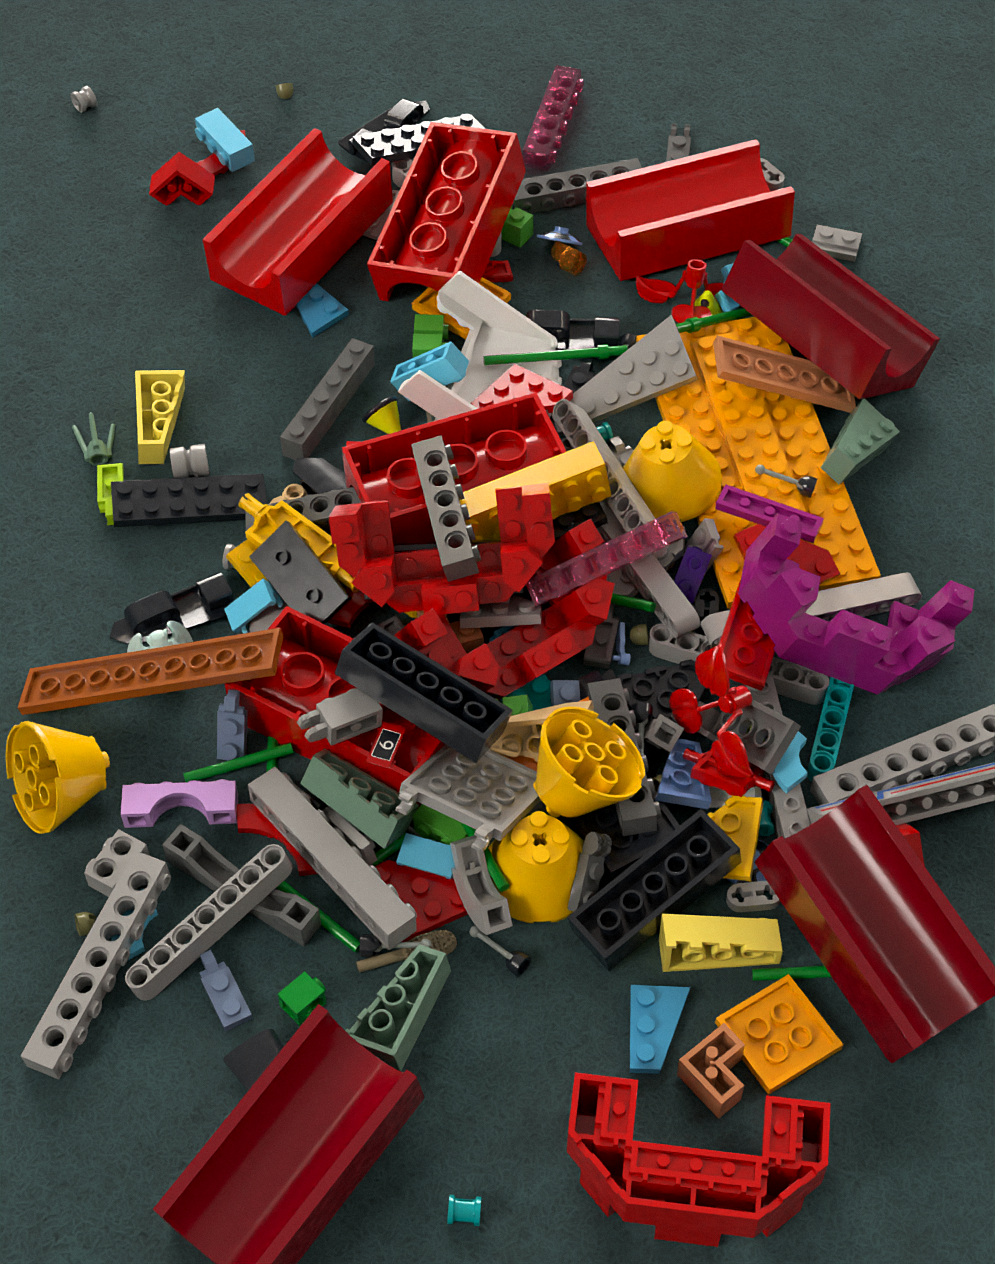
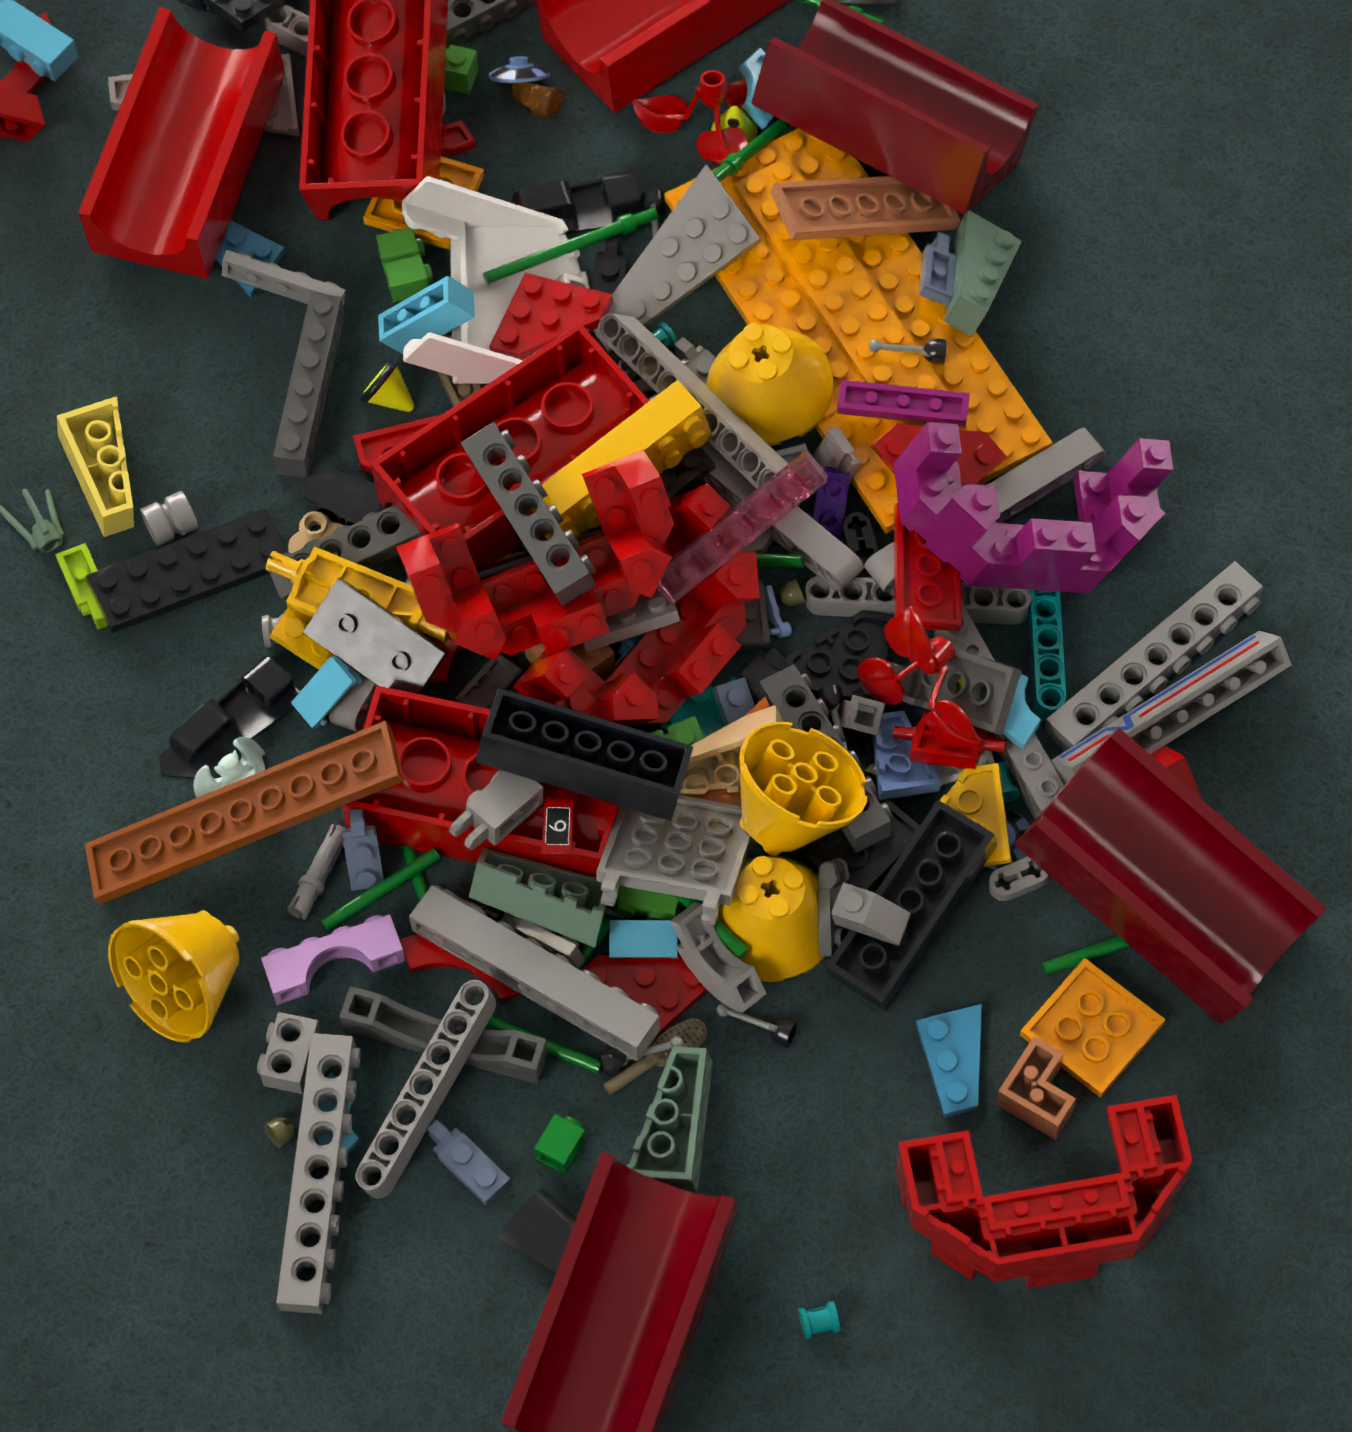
camera: 15 degrees left, 10 degrees up
(188, 743) = (313, 882): none -> light grey pin
(330, 324) = (275, 279): none -> light grey plate
(615, 882) = (869, 914): none -> light grey slope
(717, 942) = (997, 944): light yellow wedge -> none
(826, 432) = (938, 271): none -> sand blue hinge

